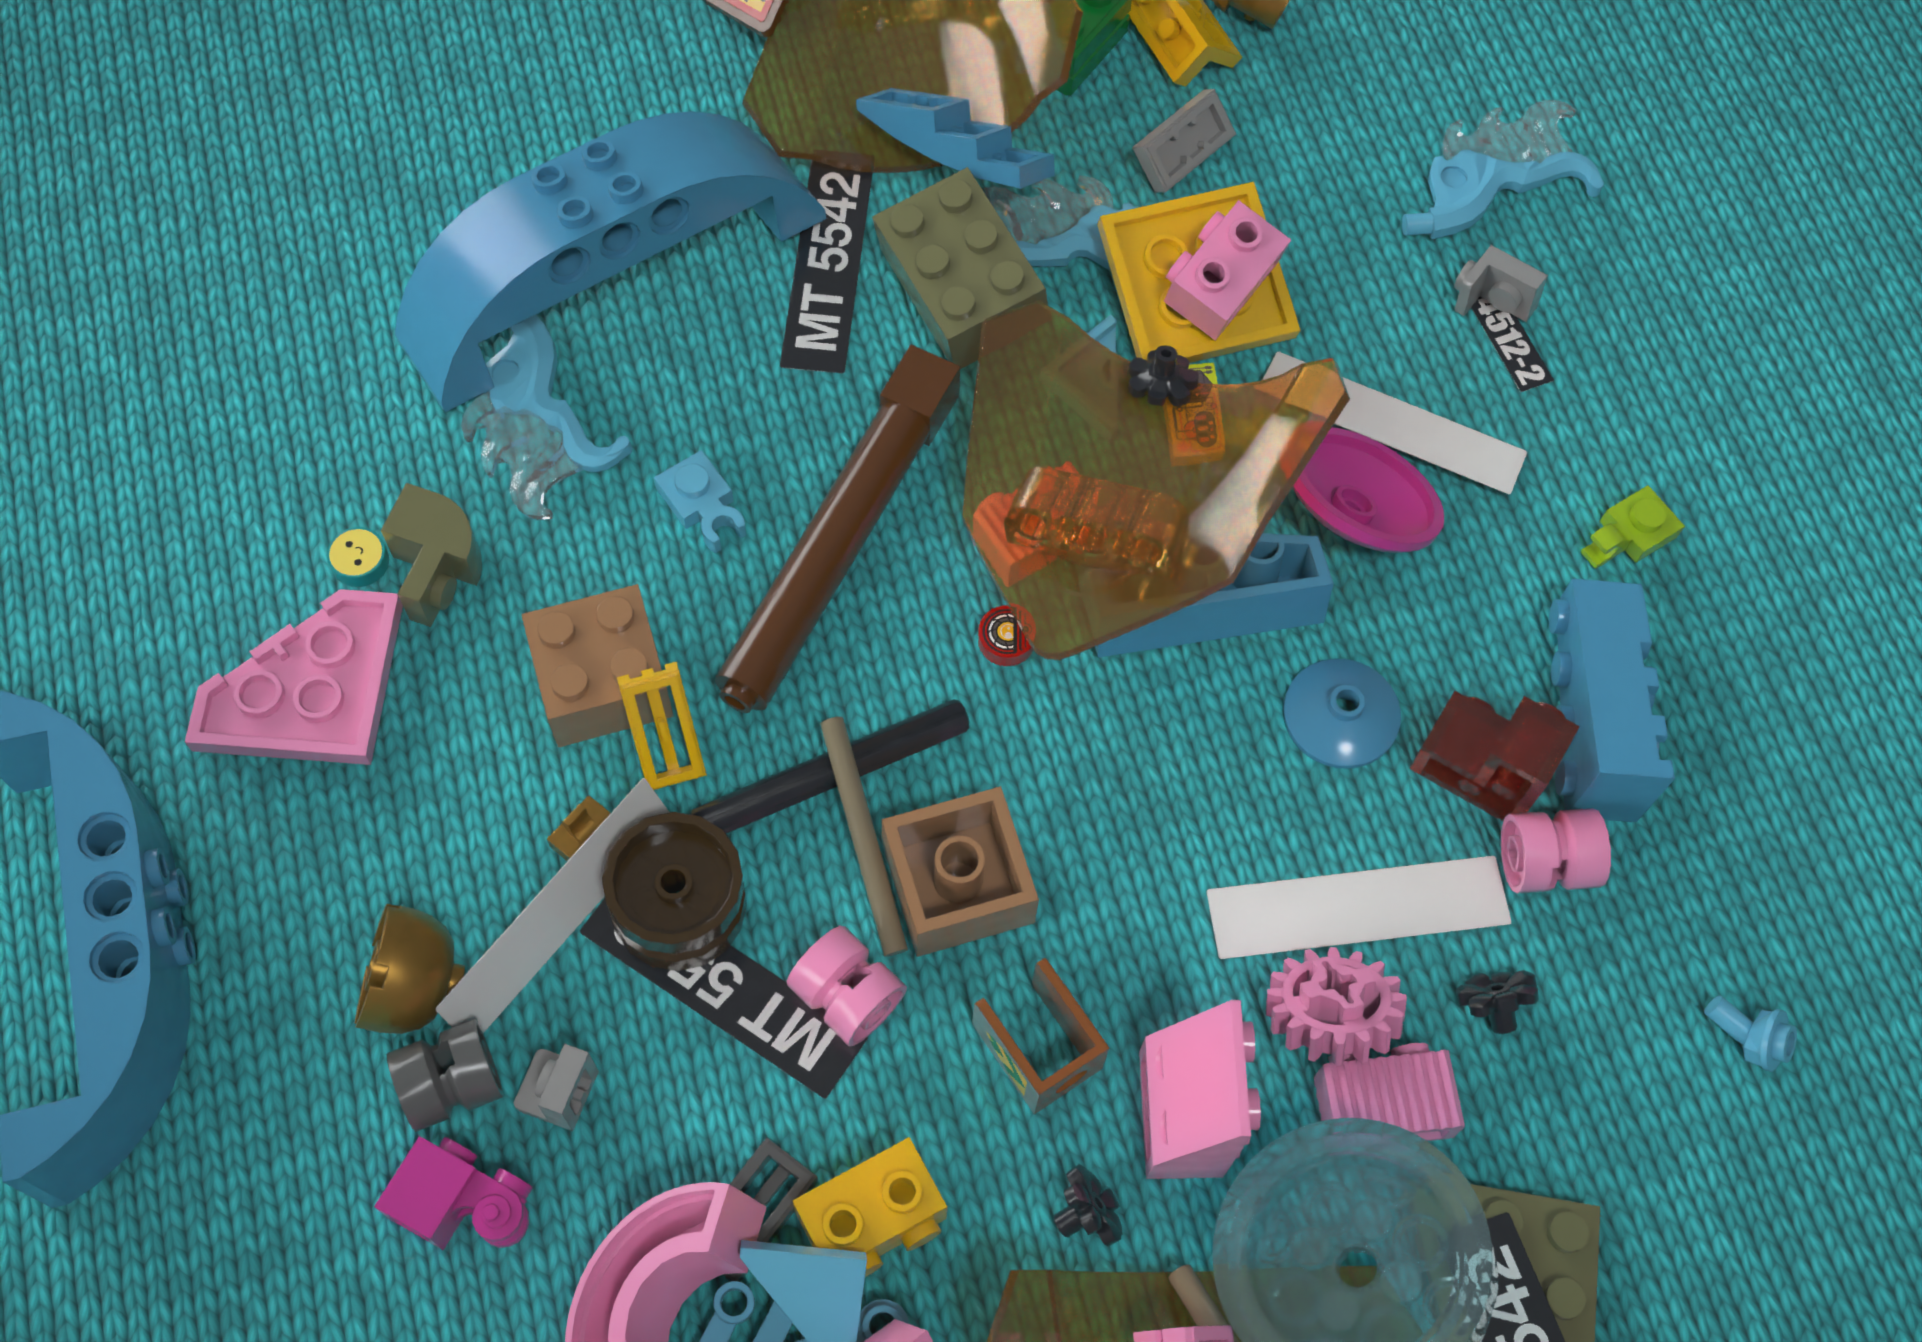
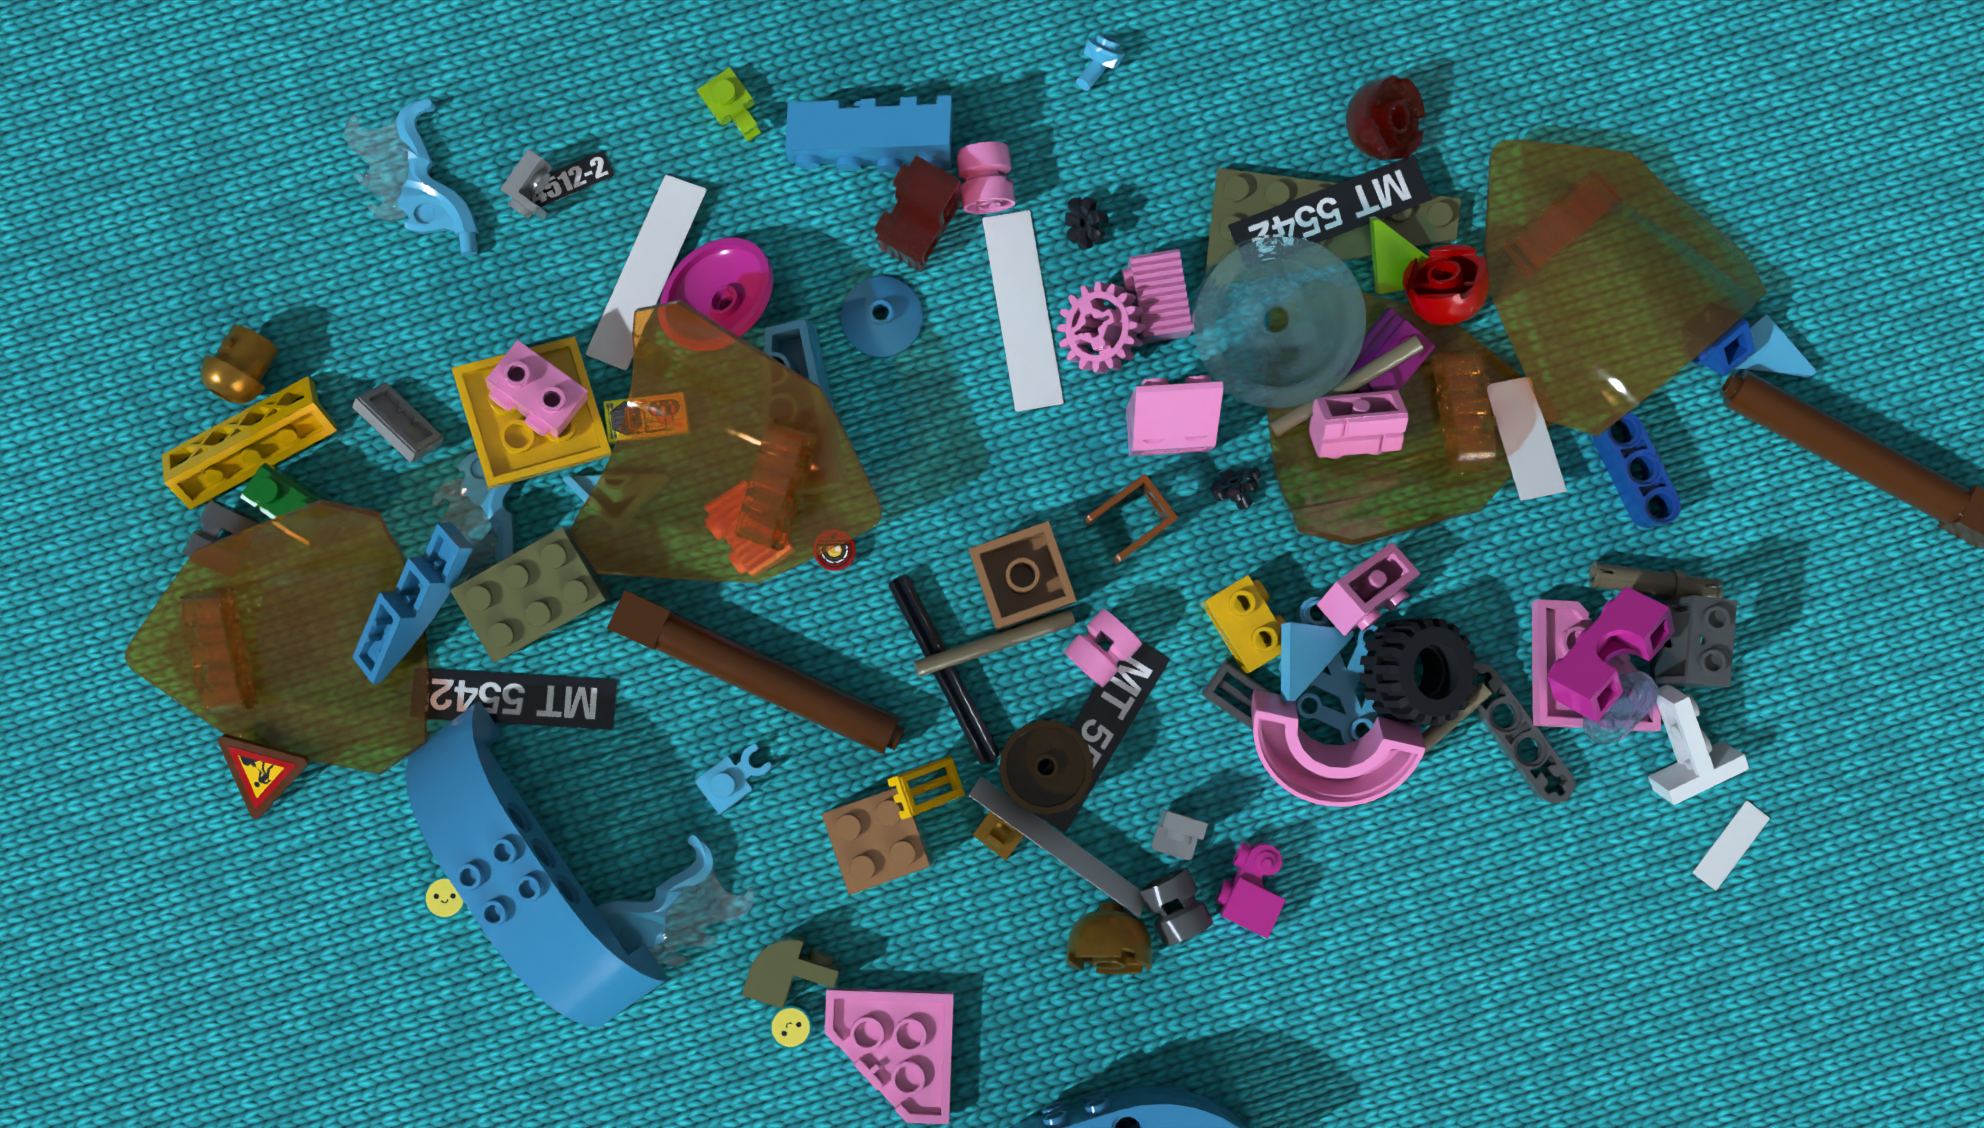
camera: 90 degrees left, 20 degrees up
(1162, 376) = (626, 439): black plant -> none

